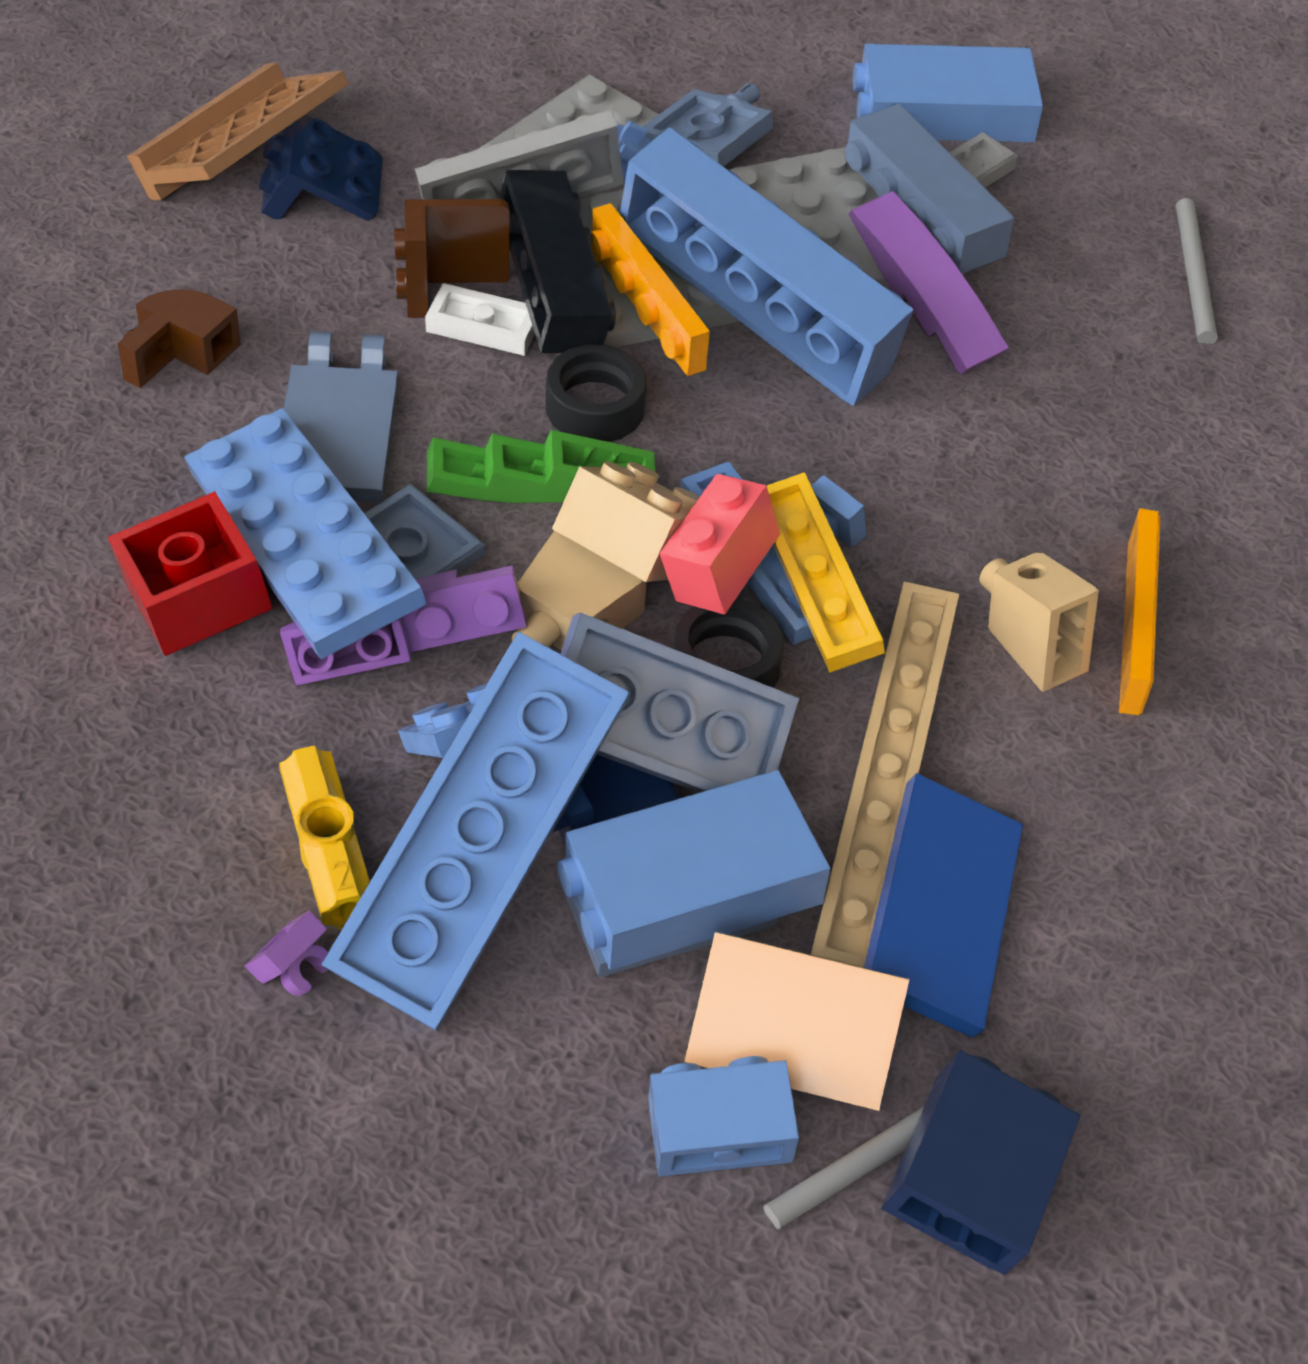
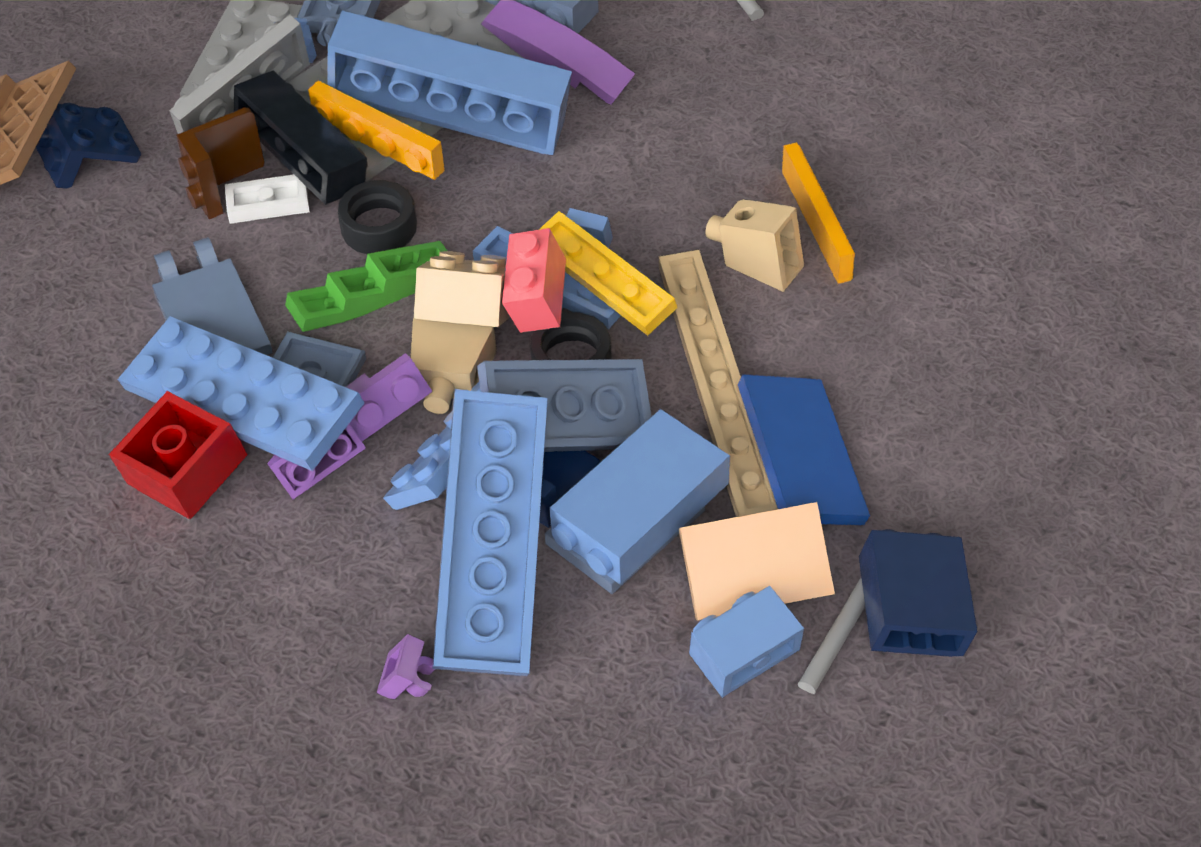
camera: 20 degrees left, 0 degrees up
(180, 327) = (57, 290): reddish brown brick -> none
(318, 811) = (366, 570): yellow piece -> none

